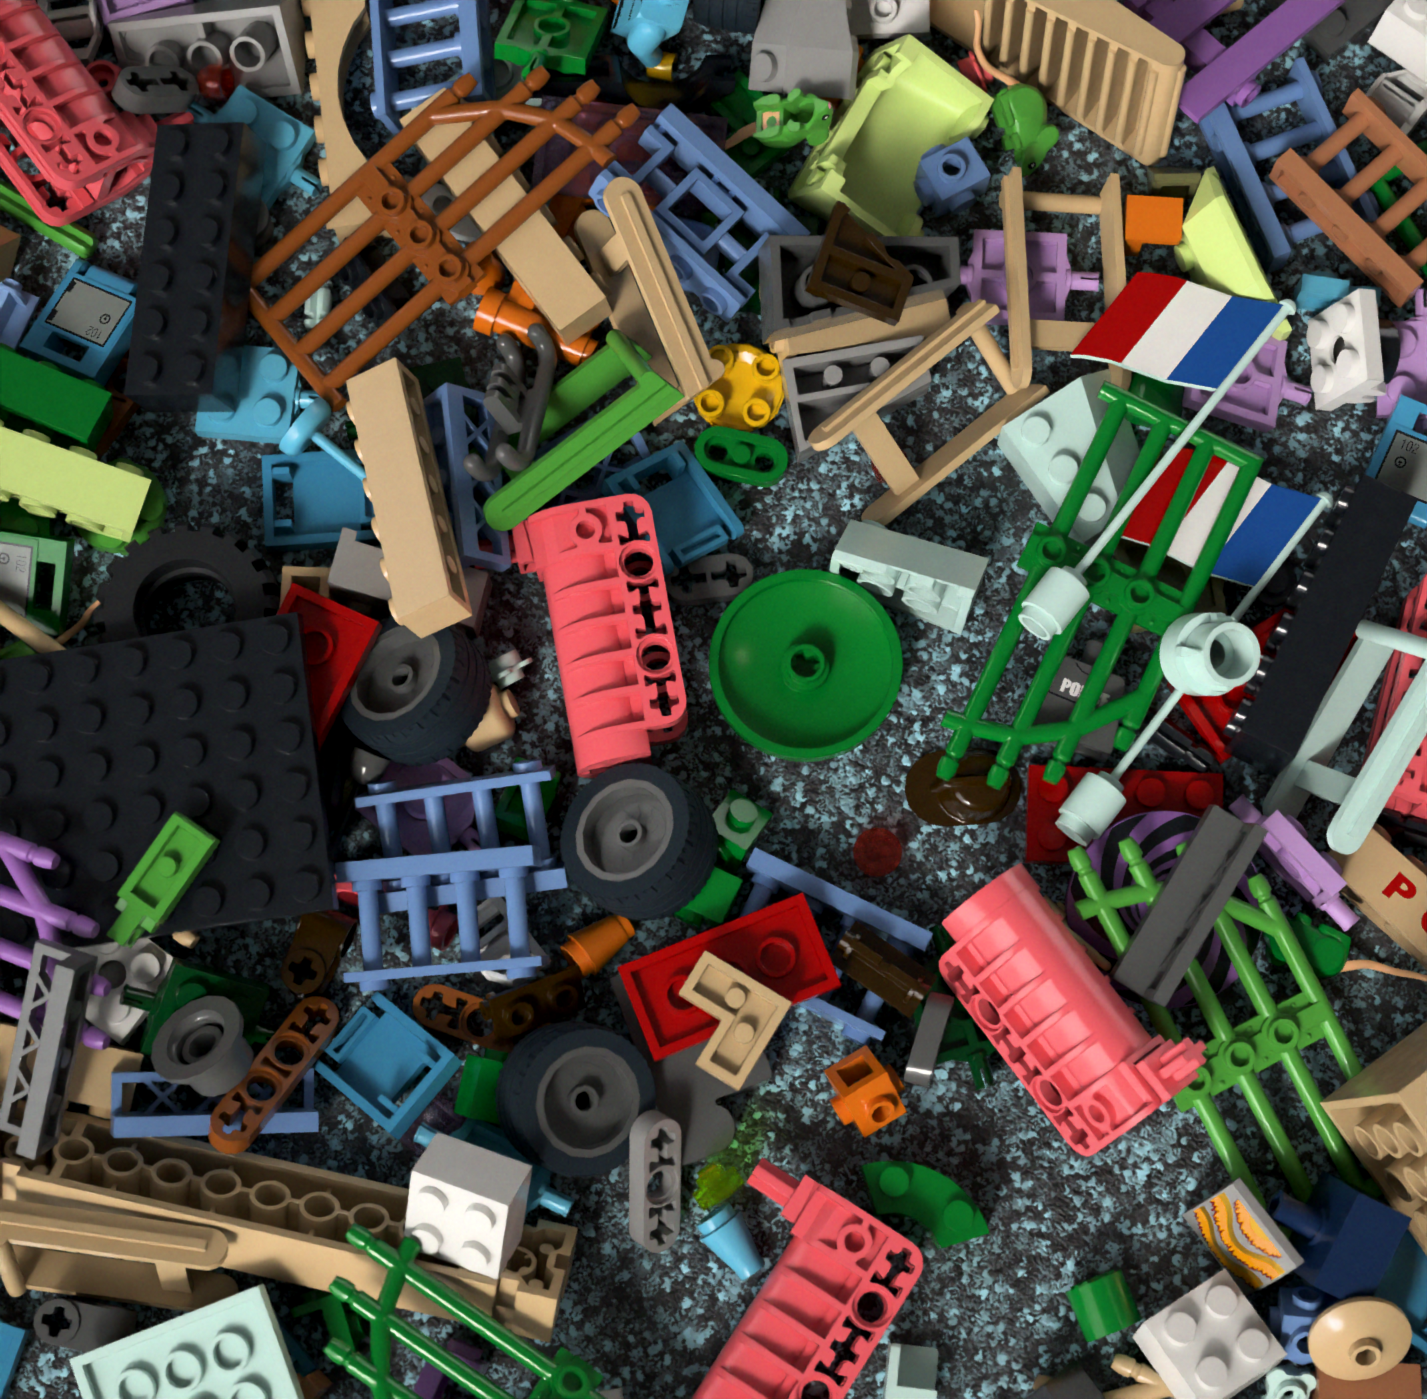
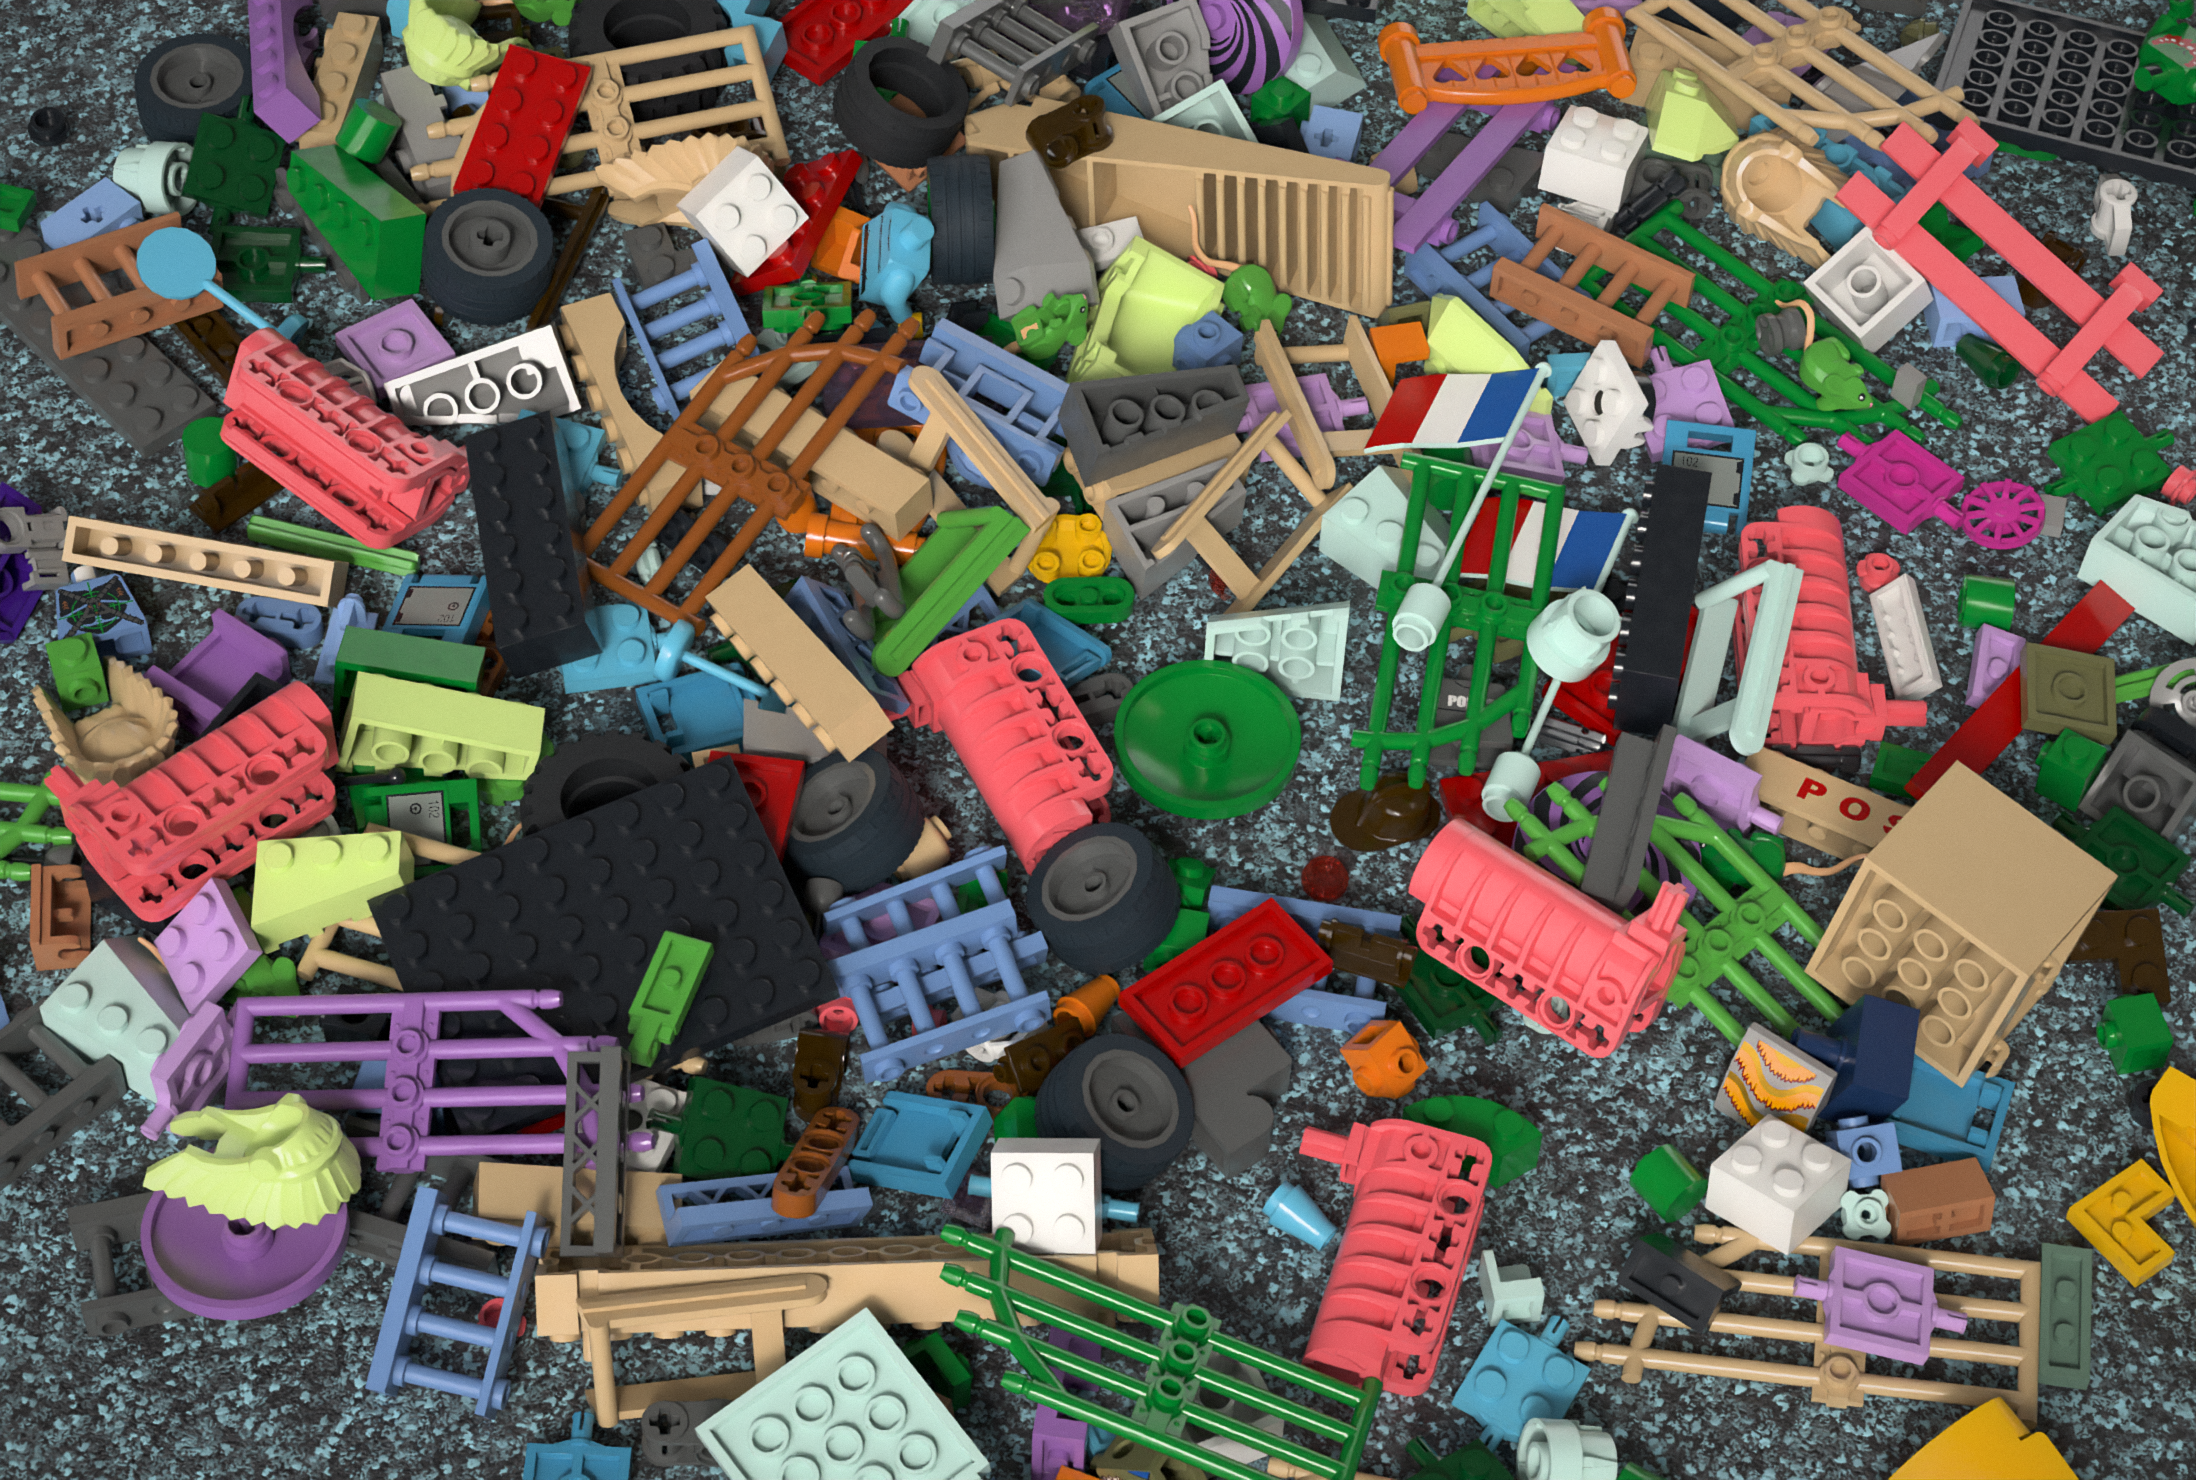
camera: 20 degrees left, 25 degrees down
(155, 89) = (447, 417): dark grey beam -> none
(203, 1046) = (748, 1135): dark grey piece -> none
(216, 82) = (494, 411): clear red hinge -> none
(507, 668) = (932, 799): light aqua plate -> none
(643, 1164) = (1193, 1139): light grey beam -> none
(716, 1185) = (1271, 1167): clear neon green plate -> none
(746, 1013) = (1251, 990): tan plate -> none
(858, 271) = (1159, 394): dark brown wing -> none
(929, 1039) = (1429, 997): dark grey beam -> none
(1359, 1338) = (1892, 1124): tan dish -> none

